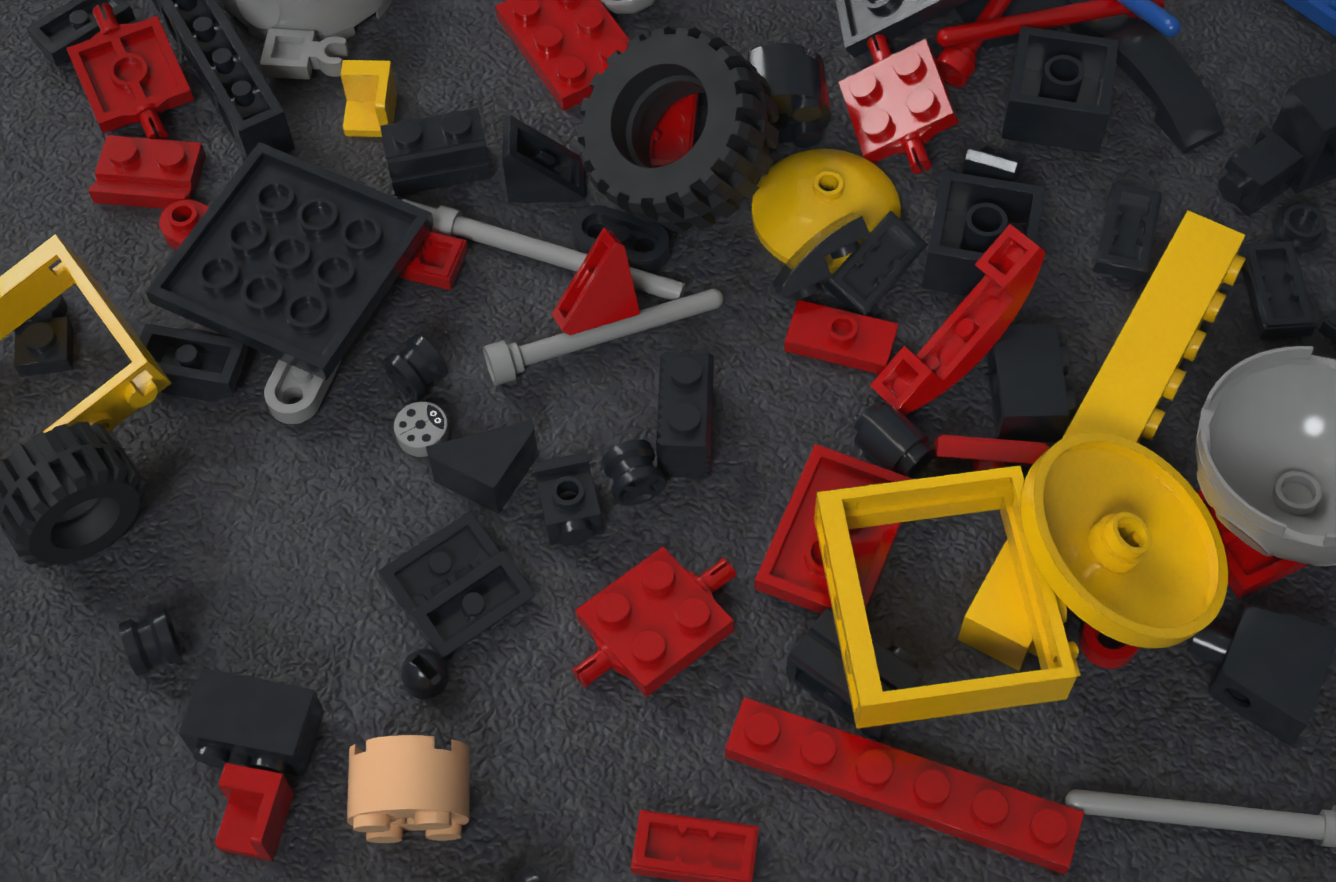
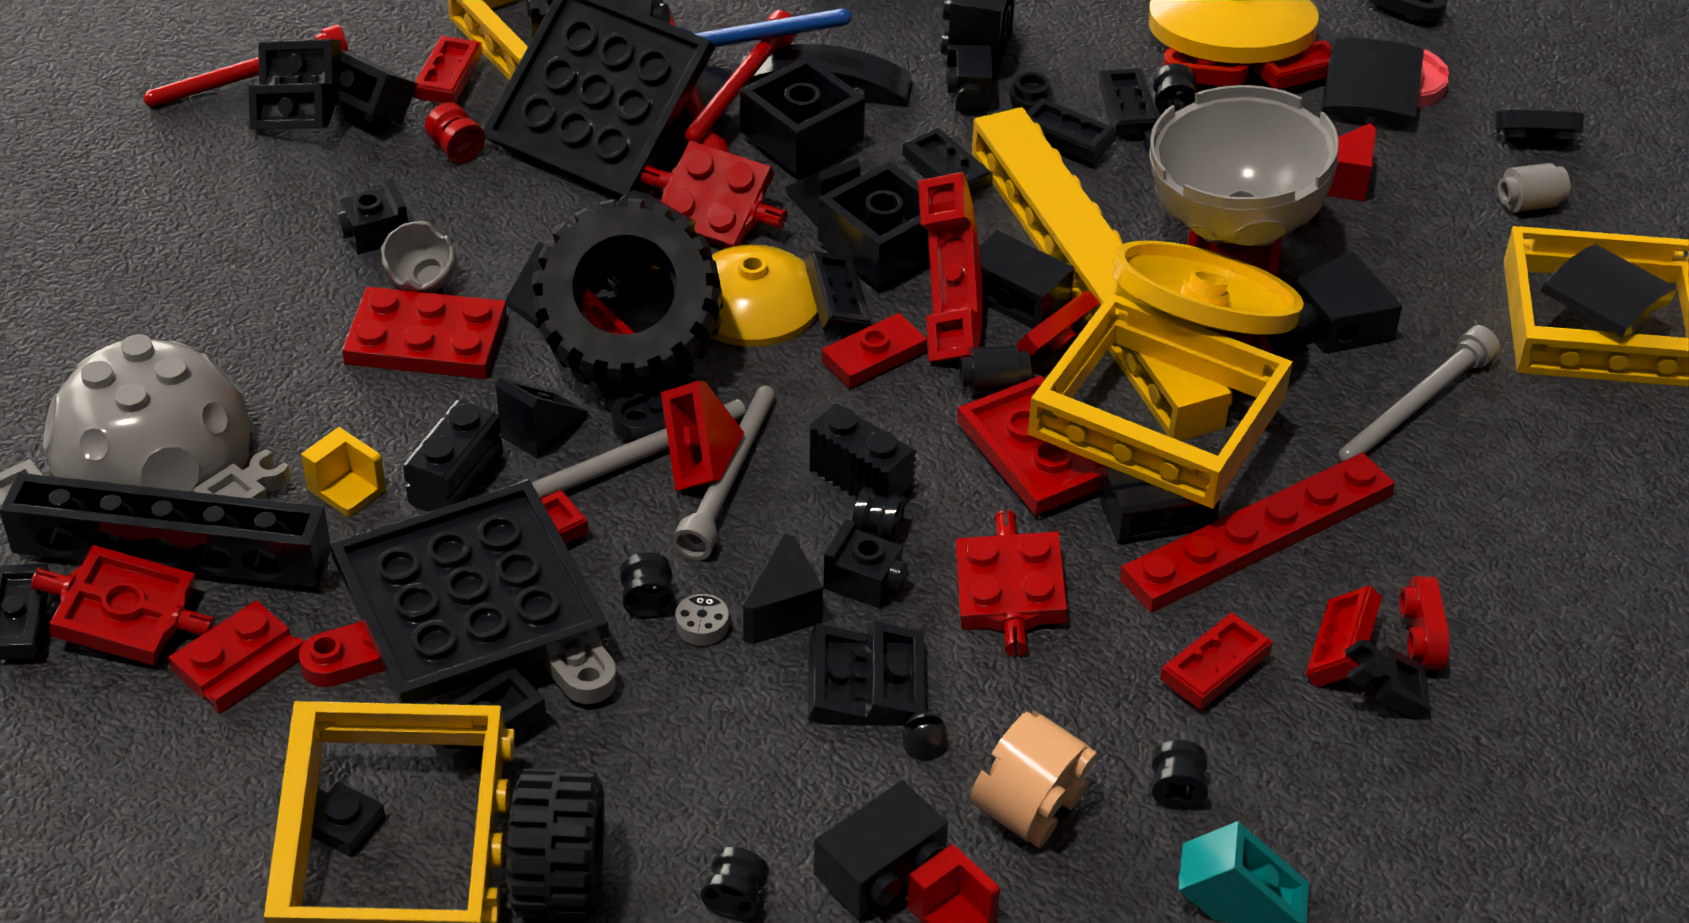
camera: 55 degrees left, 15 degrees down
(808, 267) = (802, 312): black slope -> none

